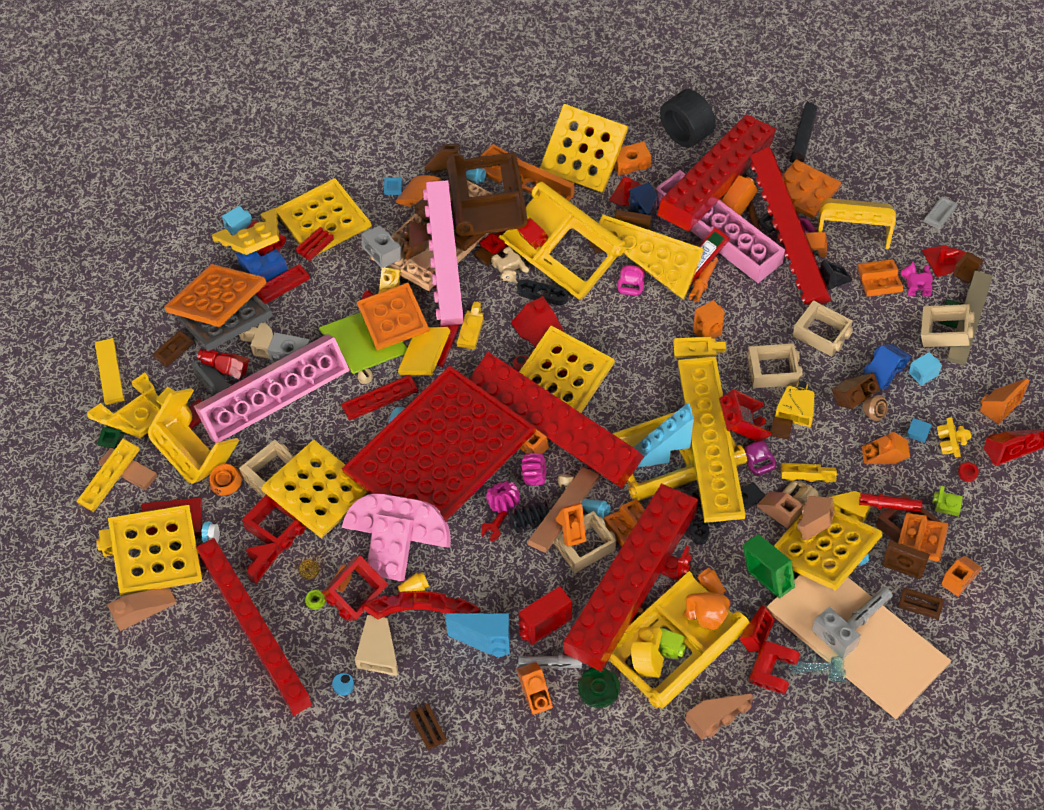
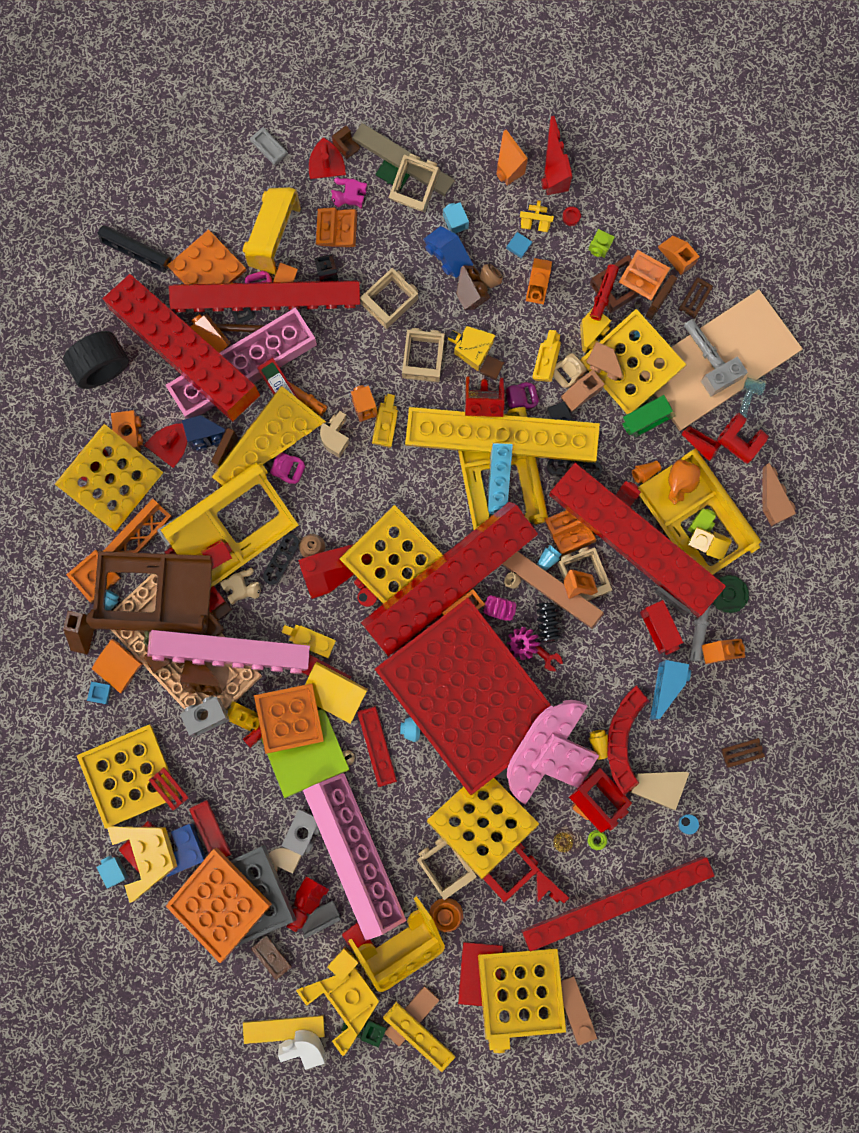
camera: 85 degrees left, 25 degrees up
(93, 386) = (305, 1045): none -> white brick
(210, 531) = (507, 936): piece -> none
(562, 311) = (317, 547): none -> medium nougat cone
(672, 306) = (330, 436): none -> tan brick

